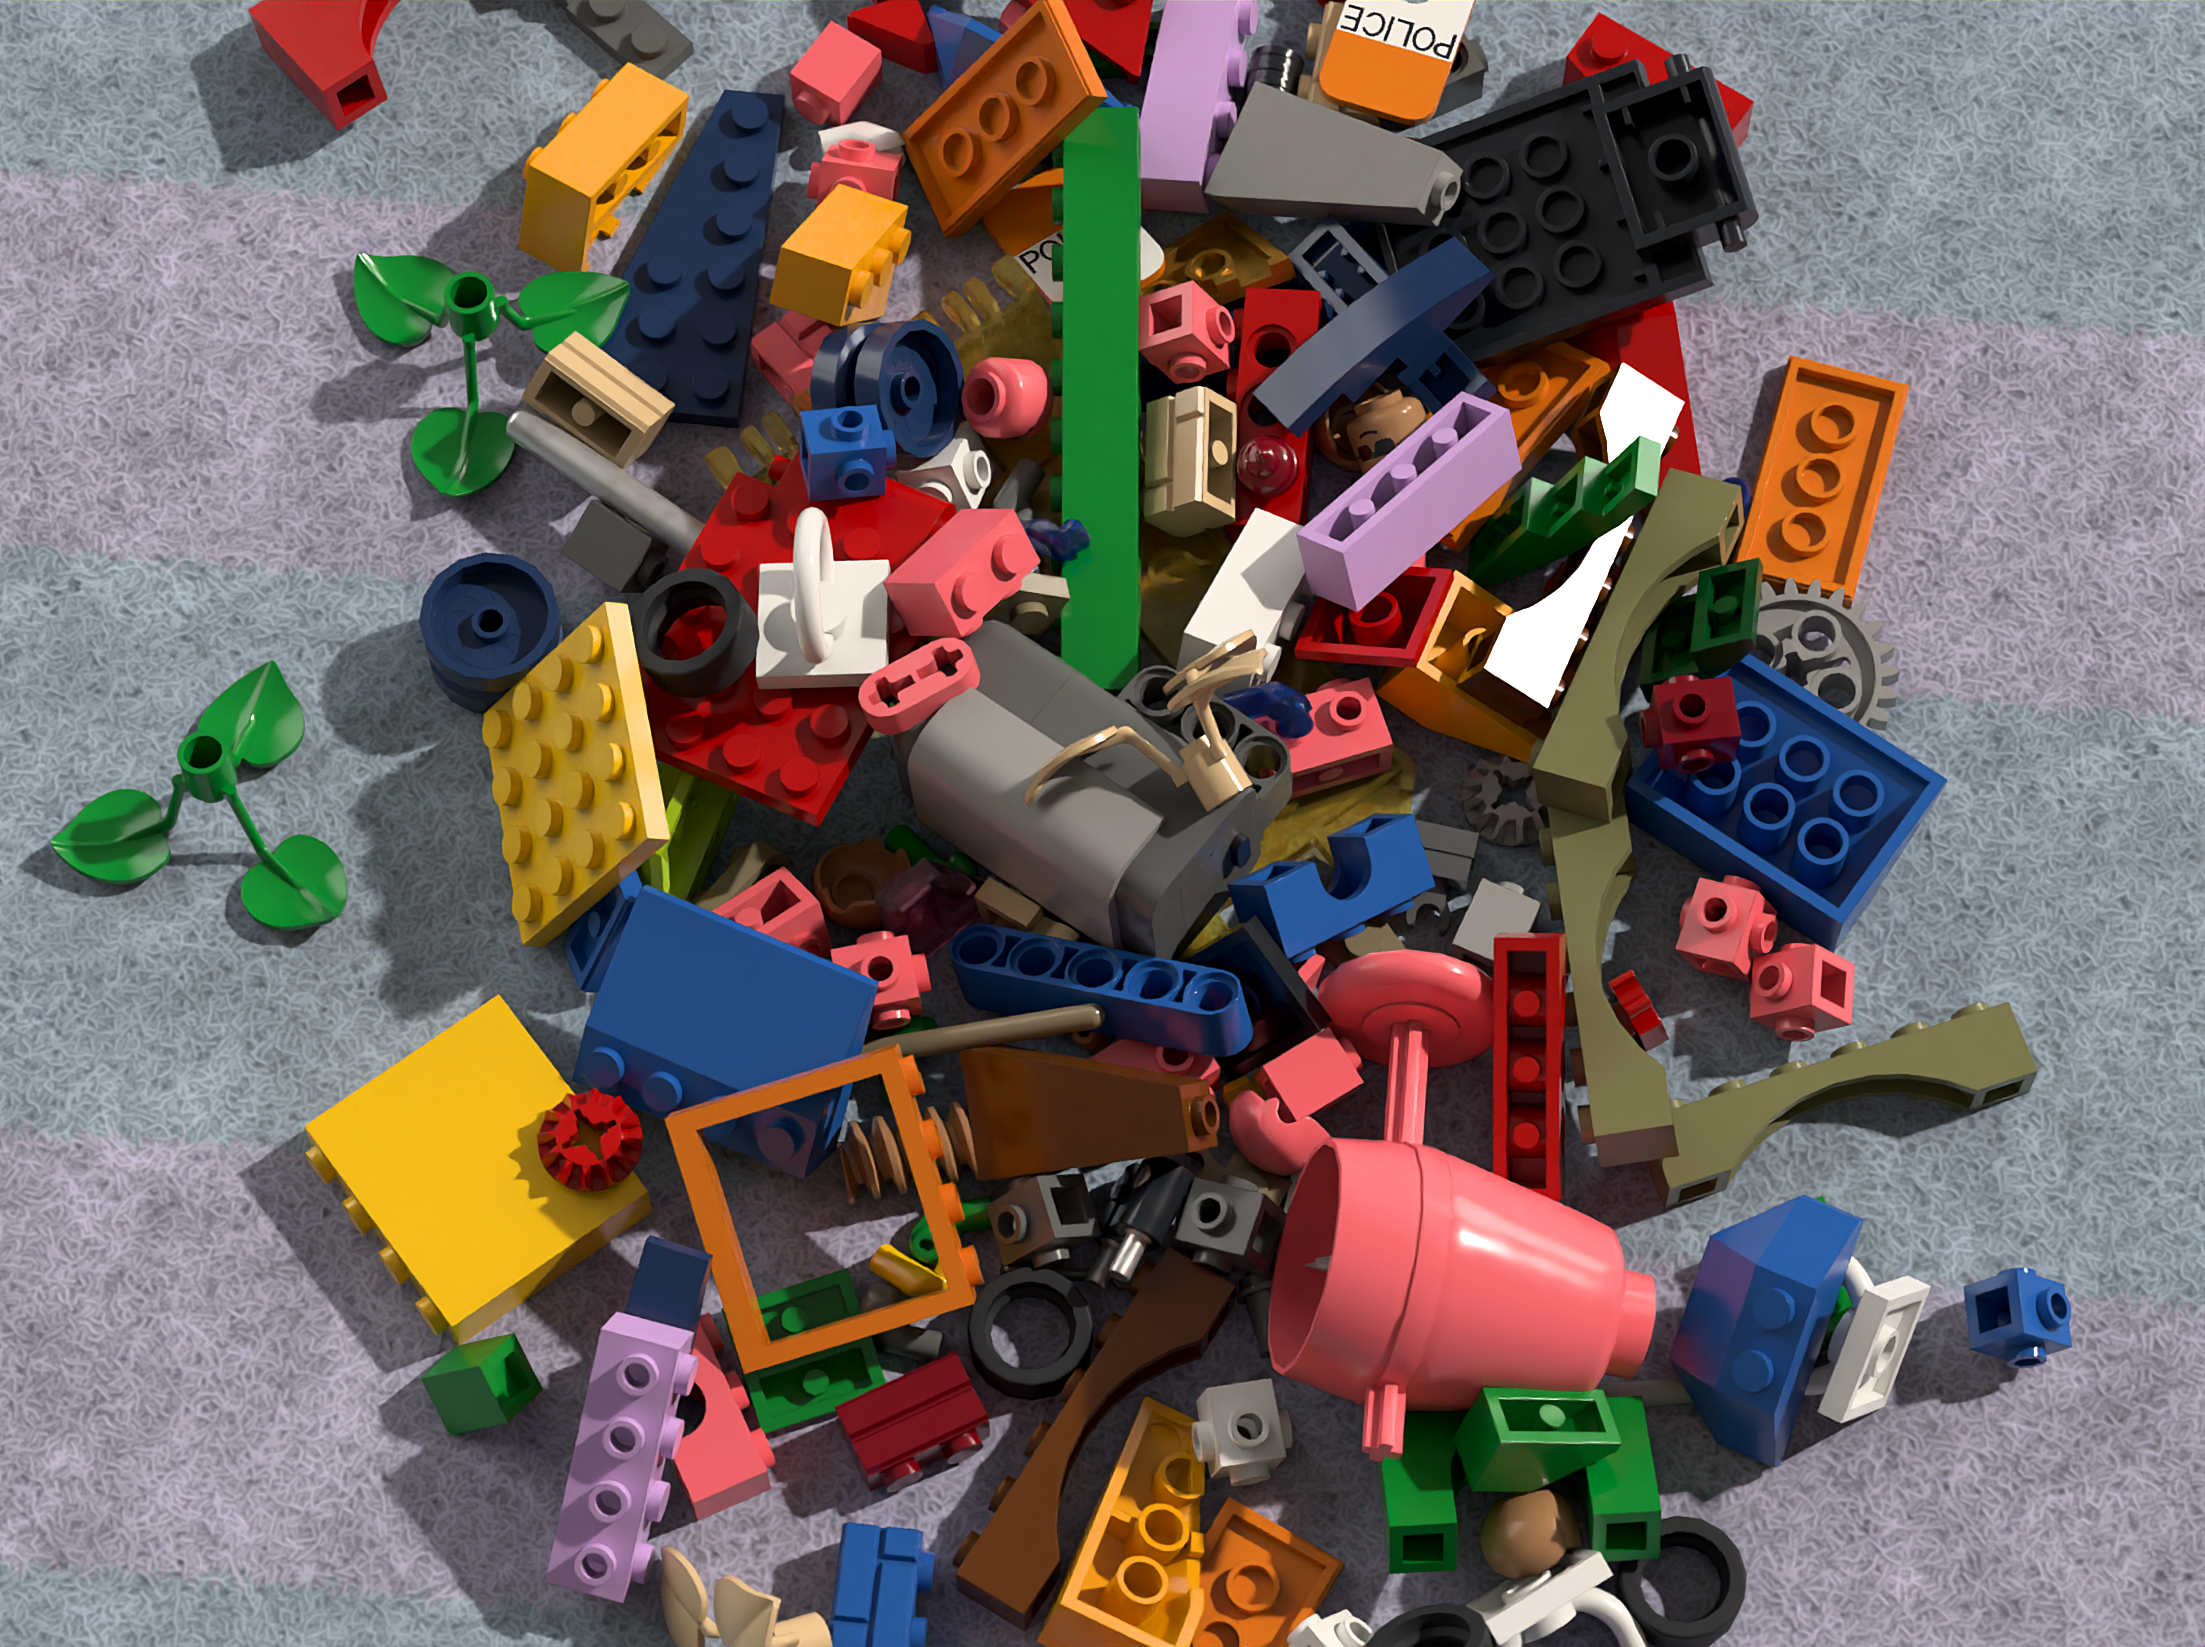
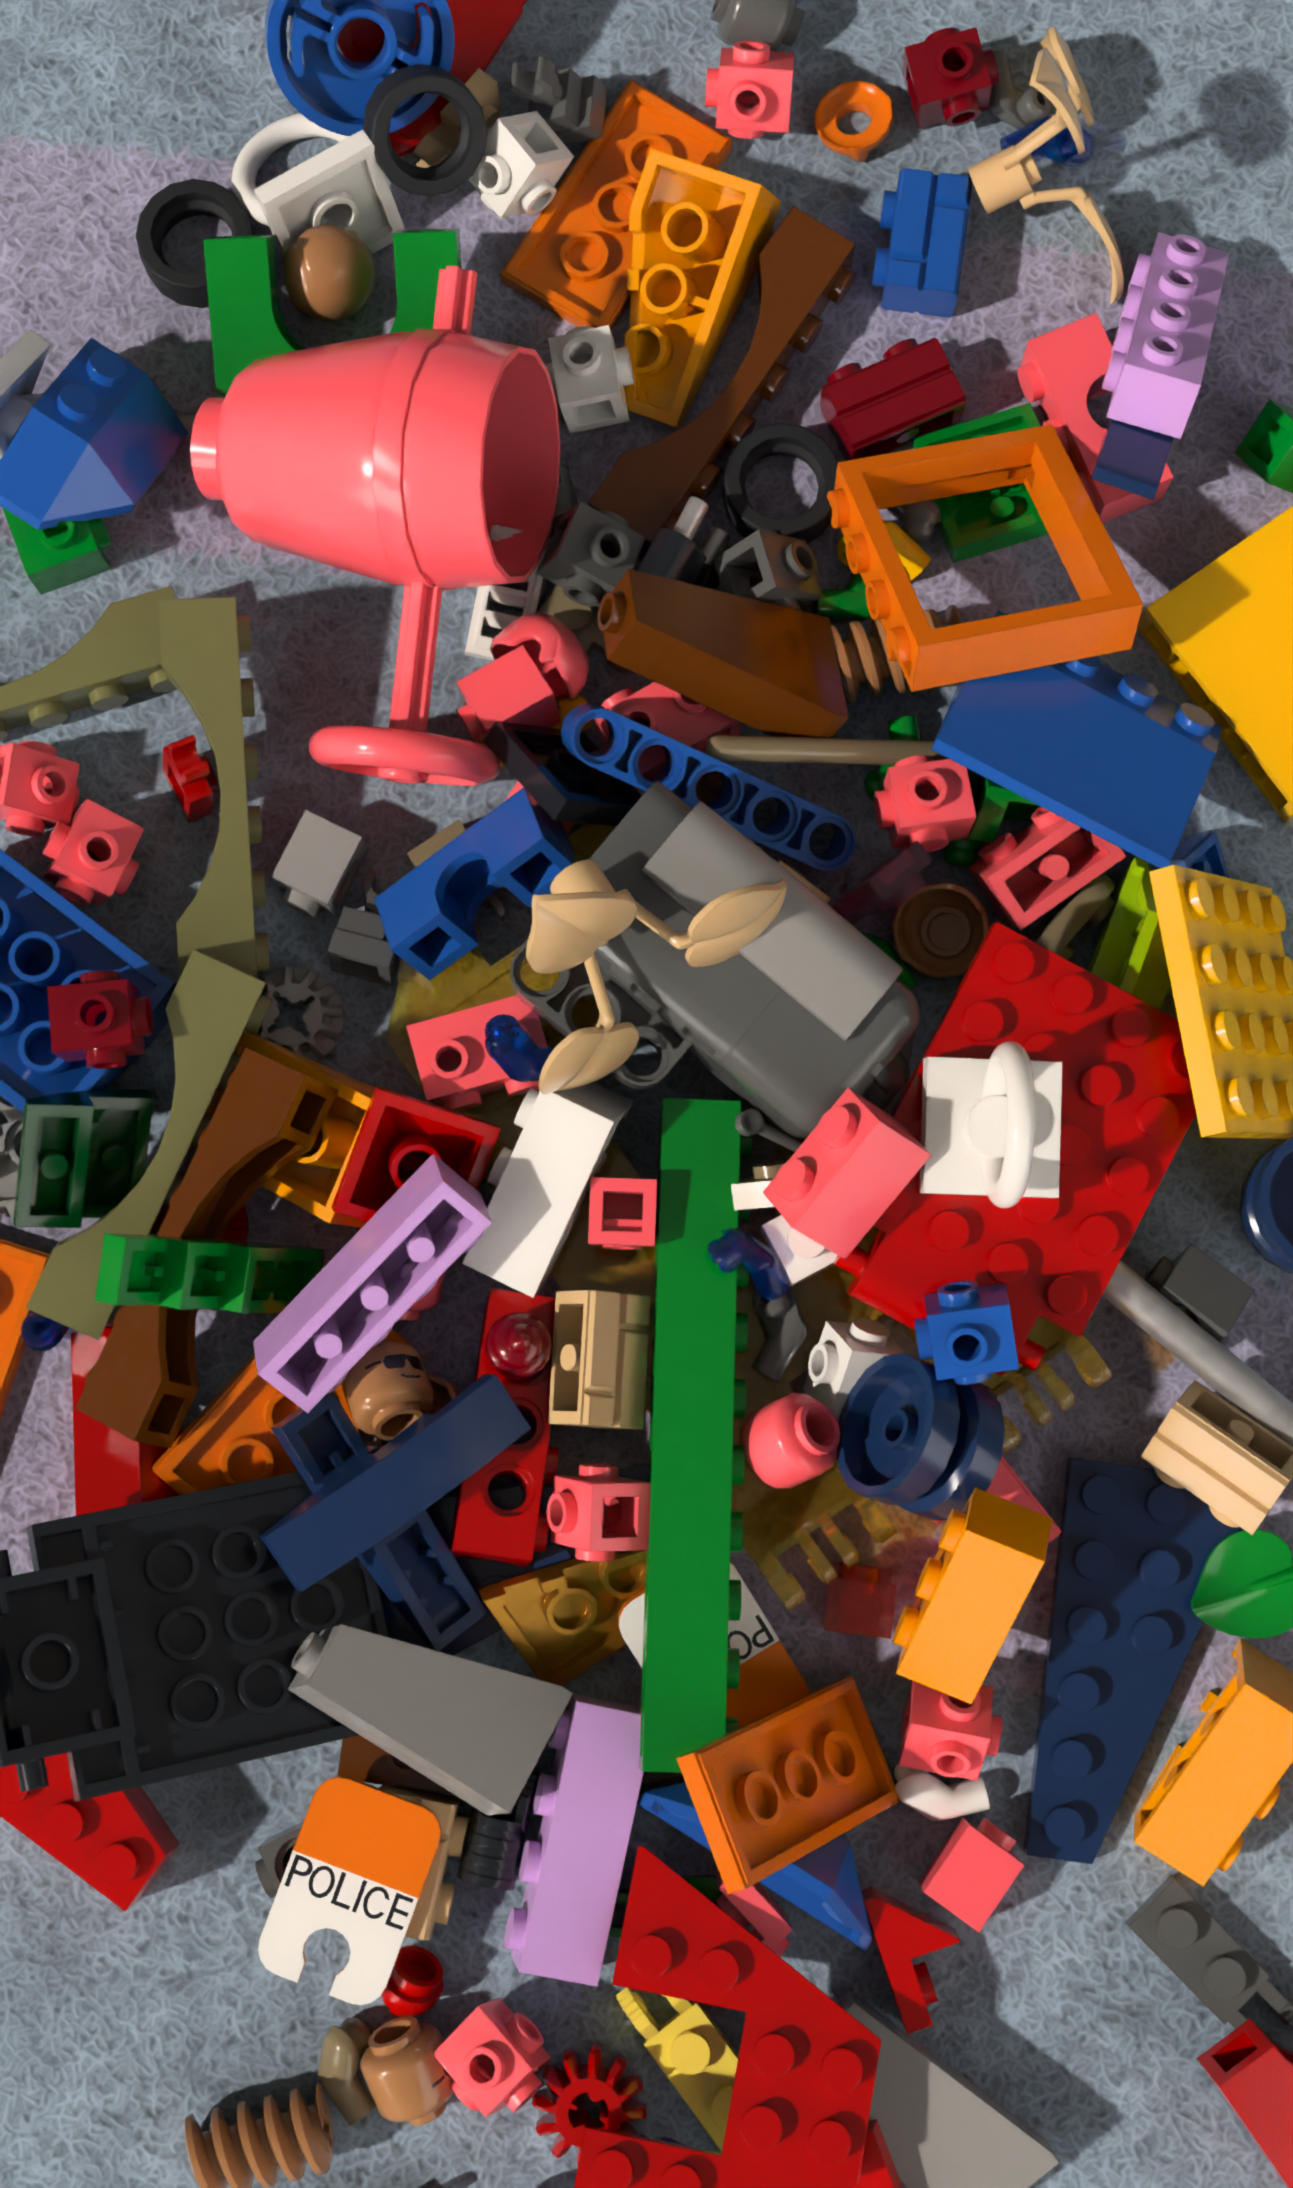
camera: 175 degrees left, 15 degrees up
(578, 1167) = (1197, 675): red gear -> none
(718, 664) = (1175, 1106): black tyre -> none
(917, 685) = (899, 1052): coral beam -> none
(935, 273) = (859, 1600): none -> clear red brick
(1171, 584) = (622, 1213): none -> coral brick
(1529, 1061) = (293, 691): red brick -> none
(1533, 1437) = (313, 316): green slope -> none

